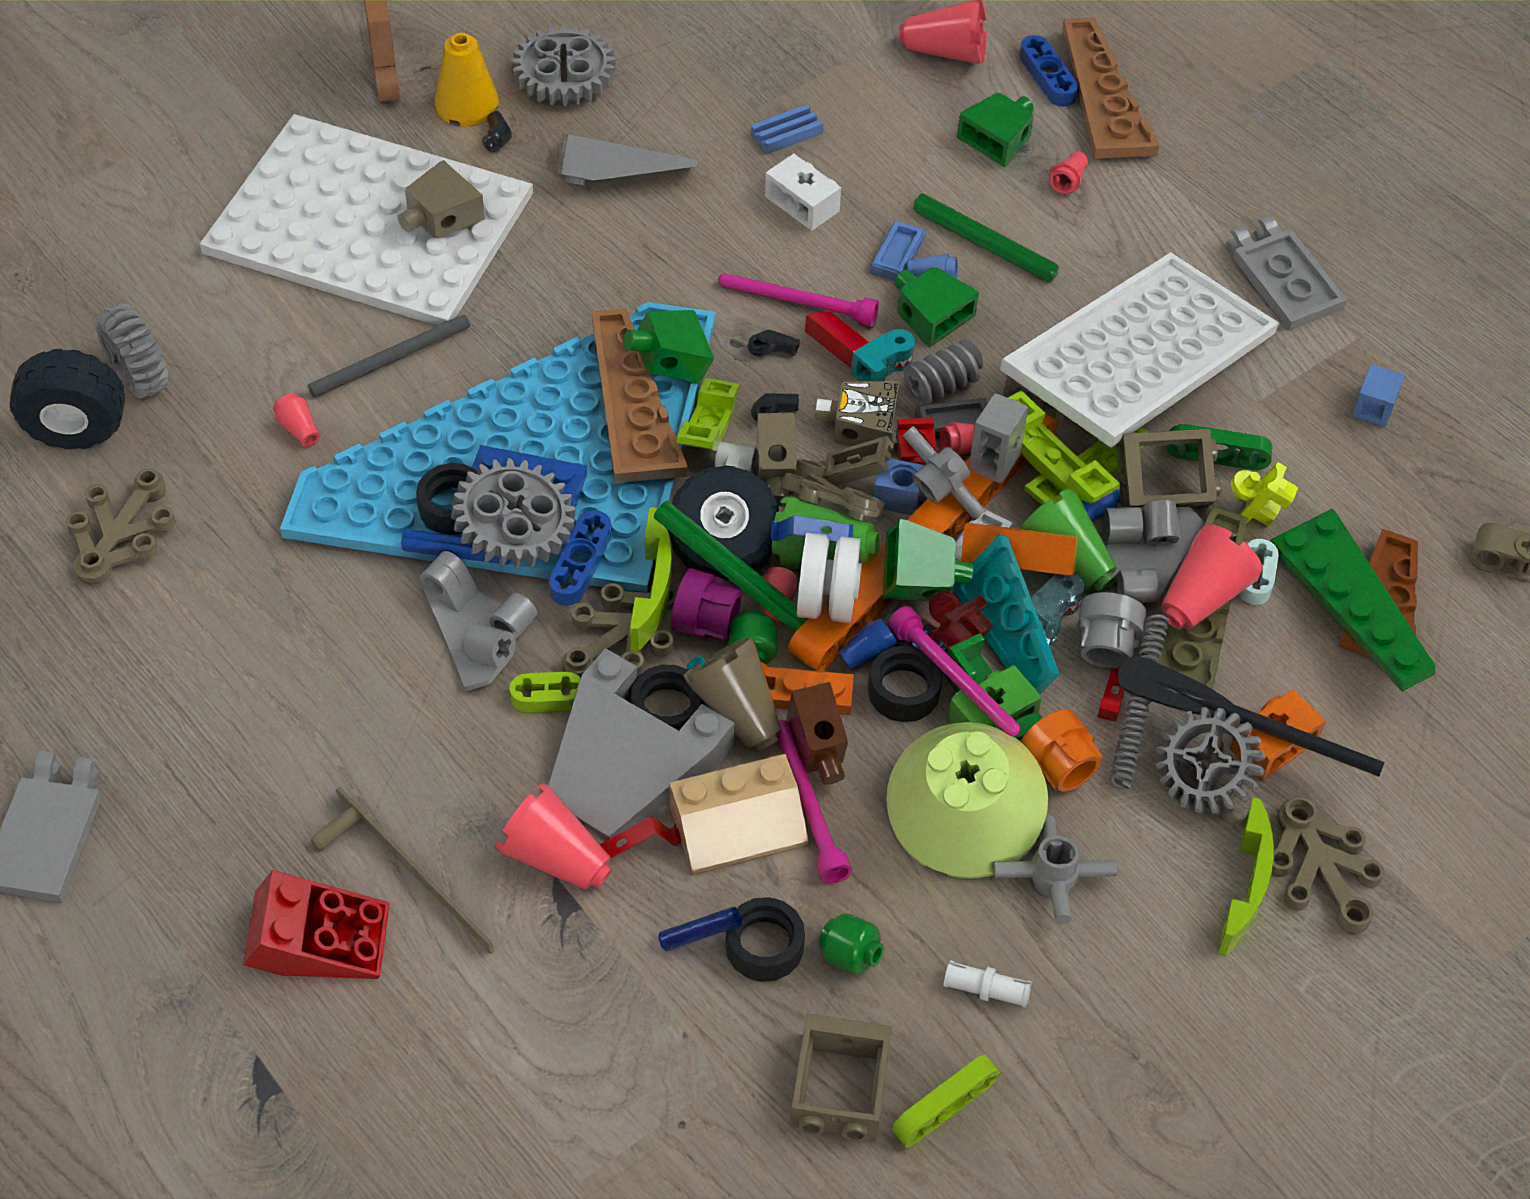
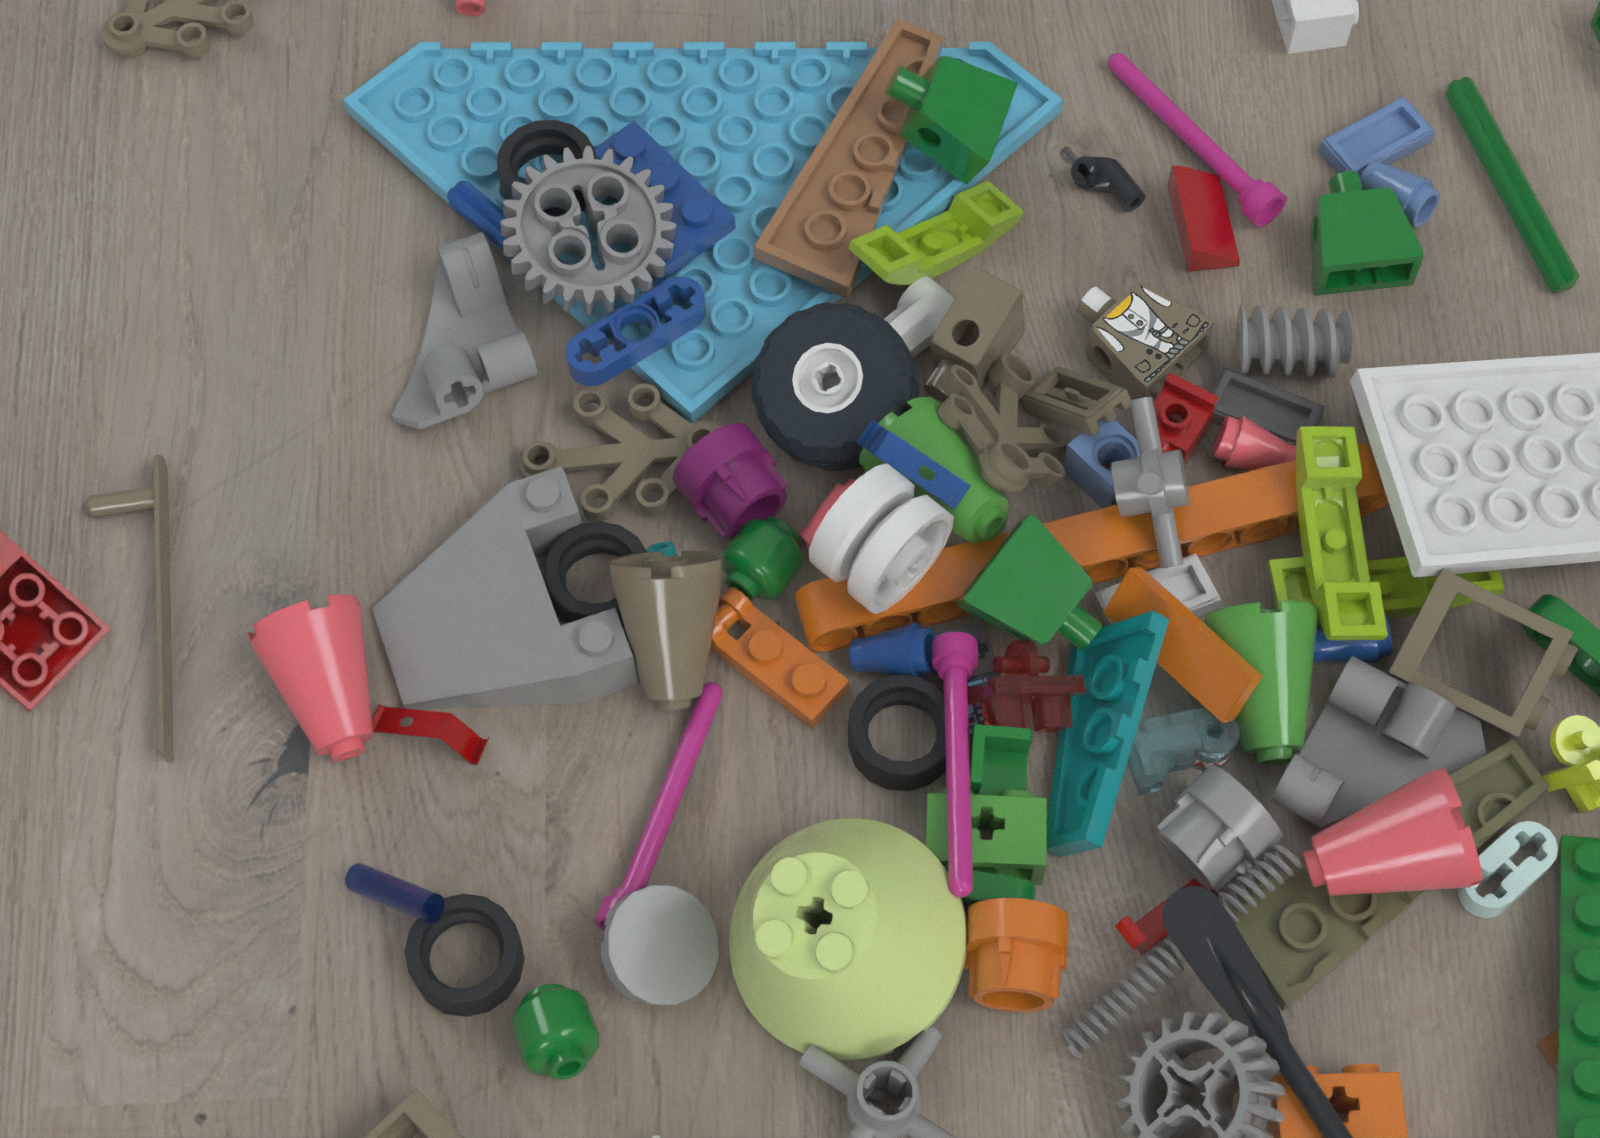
camera: 40 degrees right, 10 degrees up
(545, 693) = (478, 462): lime beam -> none
(649, 612) = (645, 455): lime slope -> none
(729, 565) = (778, 427): green axle -> none
(738, 813) = (561, 774): tan slope -> none
(775, 403) = (1041, 261): black arm -> none
(818, 731) = (736, 710): reddish brown torso -> none
(871, 864) = (659, 946): none -> light grey tile
(883, 356) = (1233, 276): teal leg -> none
(998, 438) = (1261, 475): light grey brick -> none

